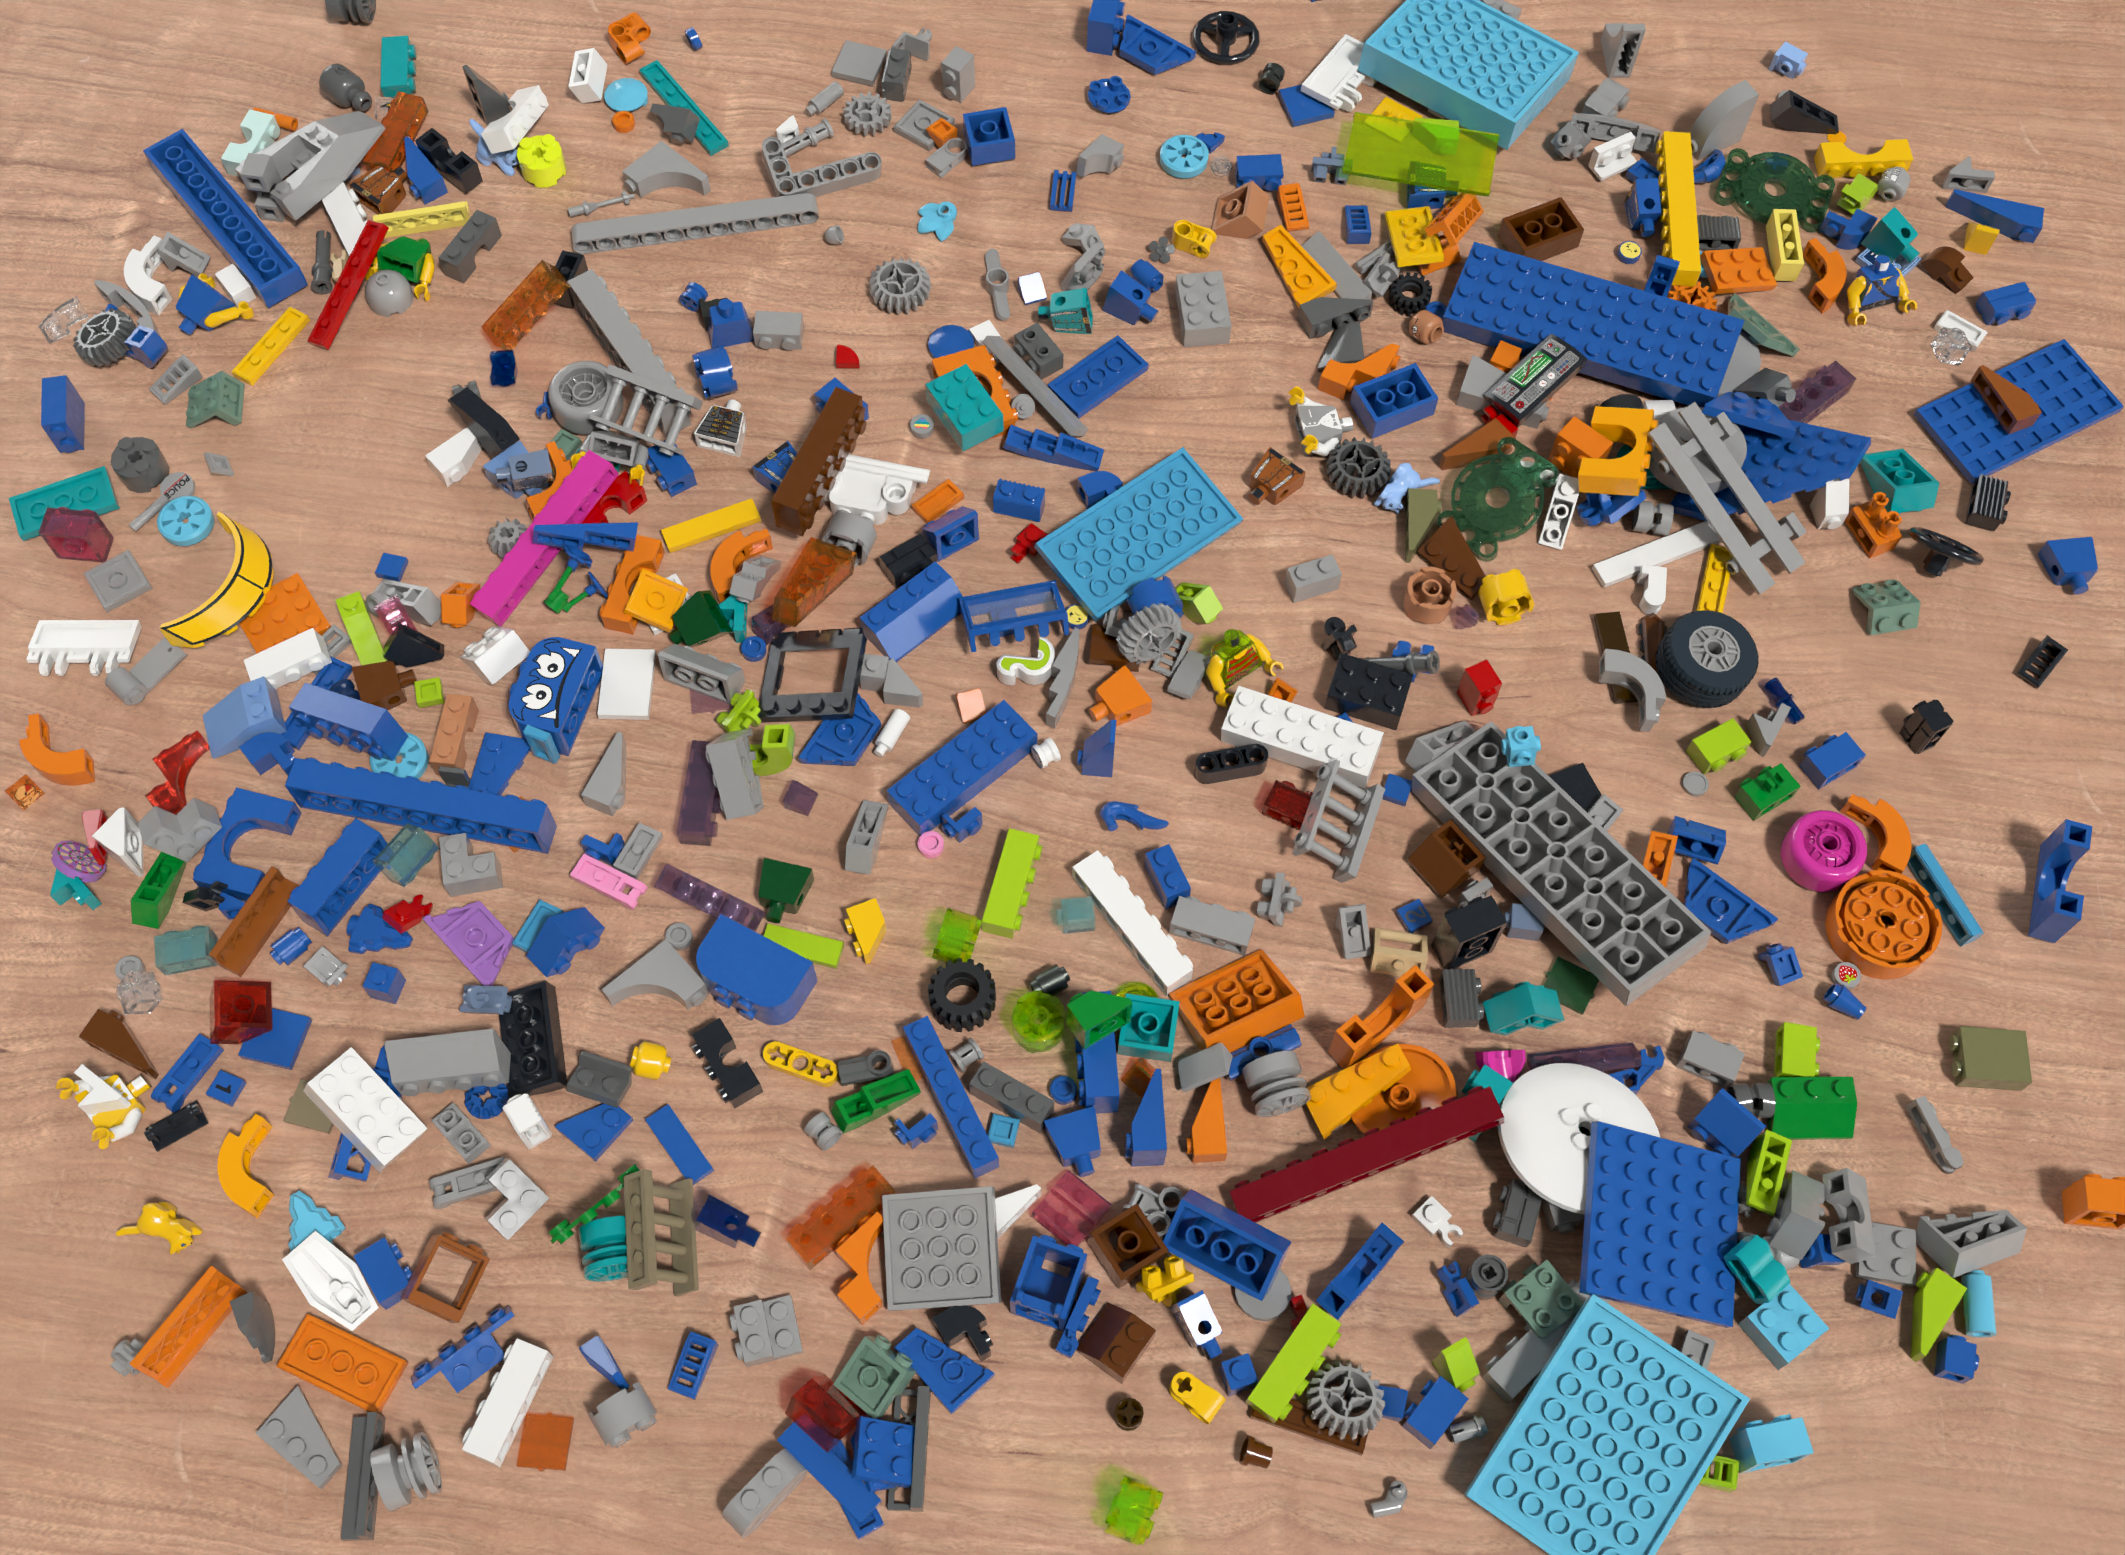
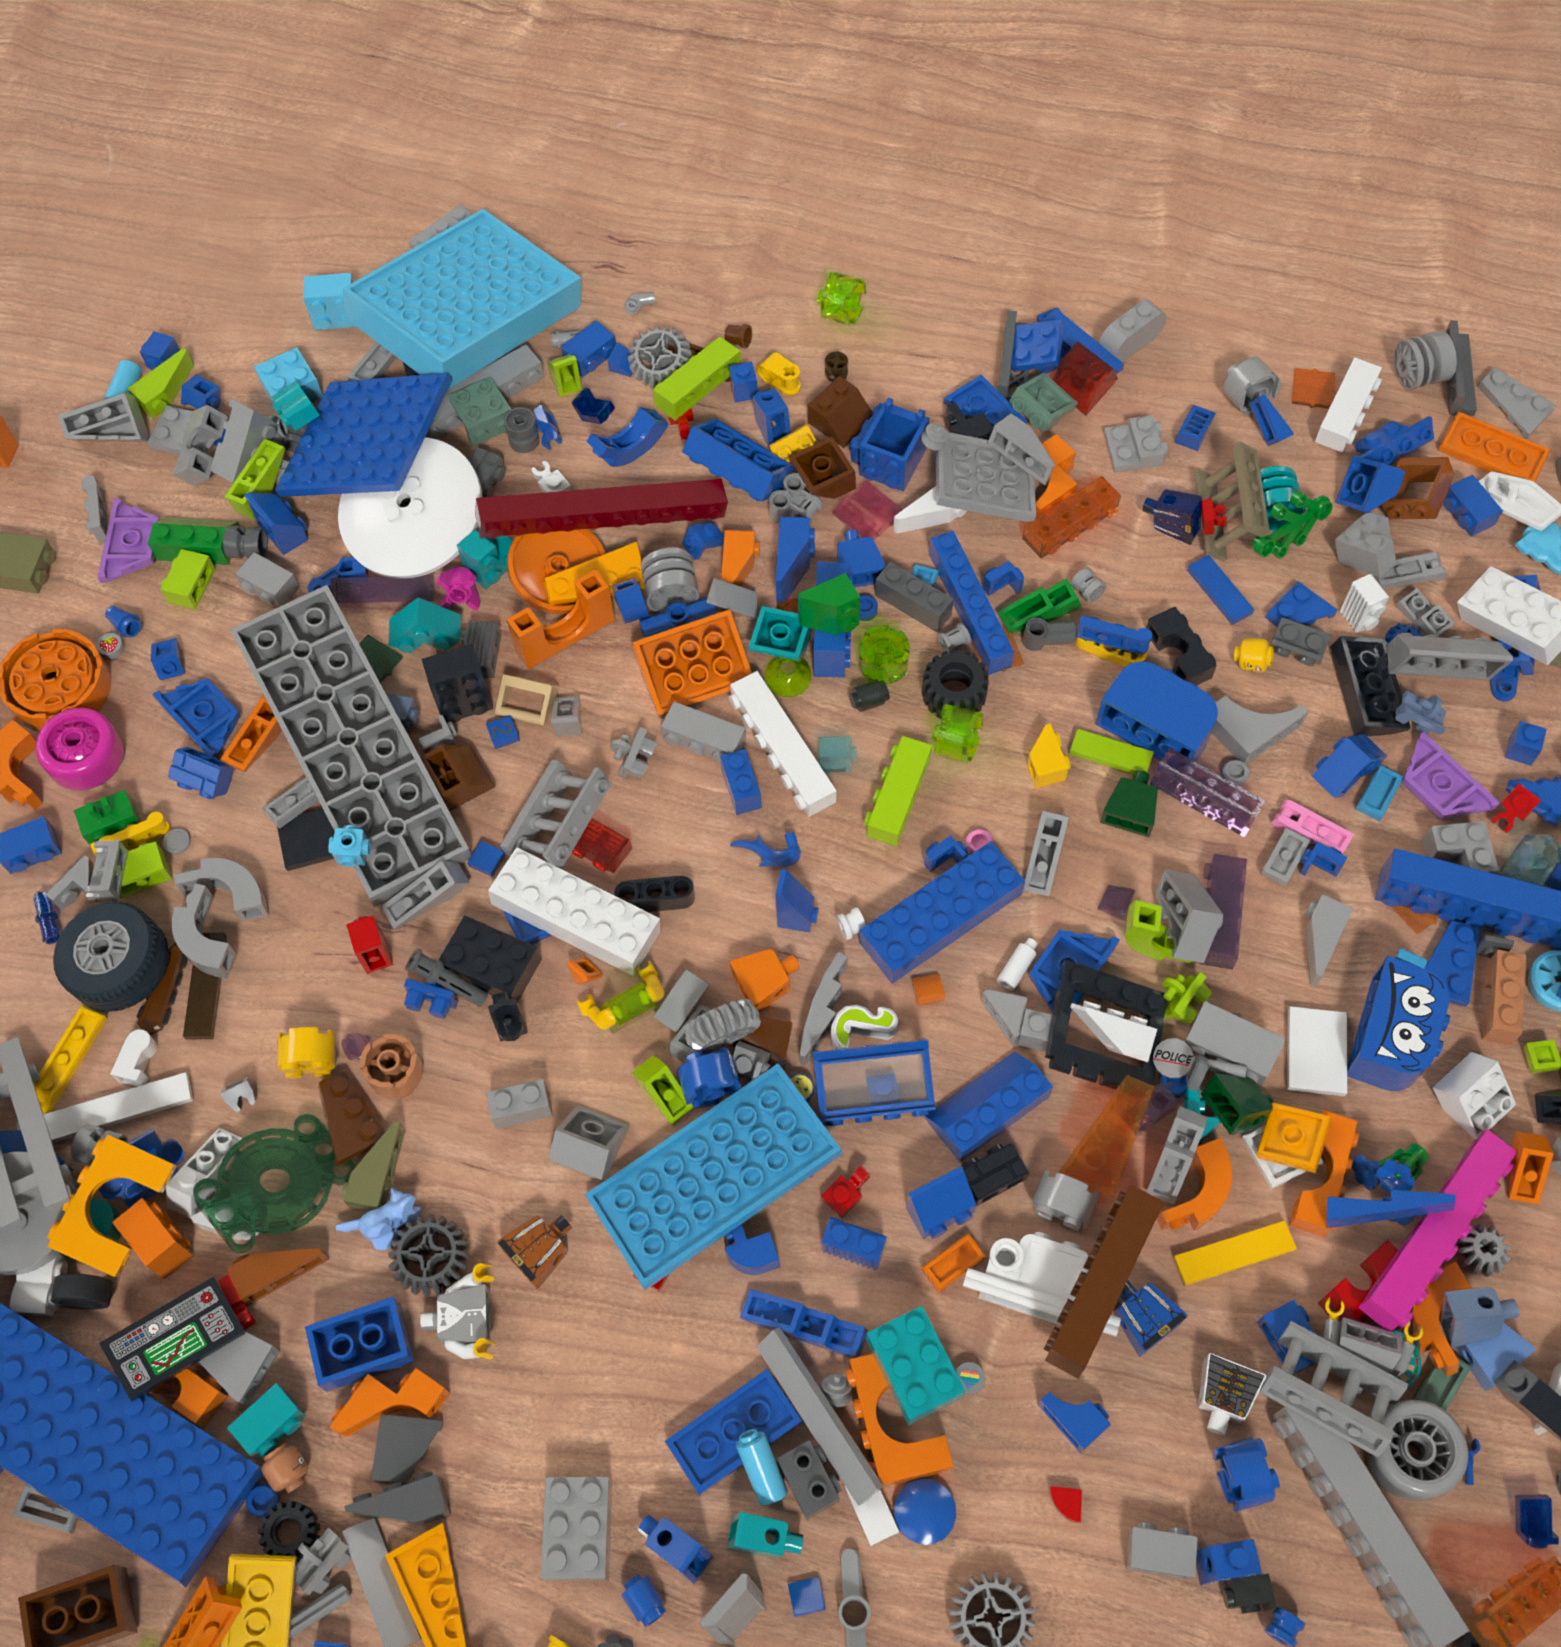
camera: 170 degrees left, 0 degrees up
(500, 1274) = (1369, 484): none -> blue slope
(687, 1208) = (1210, 517): none -> red tile
(735, 636) = (1197, 1072): none -> dark grey tile
(751, 657) = (1175, 1058): none -> light grey piece
(797, 1059) = (1114, 635): none -> blue plate
(803, 664) = (1118, 1034): none -> white slope
(902, 1295) = (1021, 446): none -> light grey slope
(1001, 1277) = (934, 436): none -> light grey wheel
(1074, 348) = (761, 1467): none -> medium azure brick
(1247, 558) = (588, 1142): none -> light grey slope
(1249, 1156) = (702, 537): none -> blue bracket
(1314, 1055) = (630, 600): none -> blue brick
(1410, 1322) = (592, 409): none -> clear blue bracket
(1447, 350) = (267, 1422): none -> teal brick
(1555, 571) = (240, 1088): none -> light grey tile
(1625, 745) = (227, 875): none -> light grey arch
(1737, 775) = (144, 832): none -> yellow plate
(1741, 724) = (107, 871): none -> light grey hinge
(1882, 1100) = (126, 542): none -> medium lavender wing

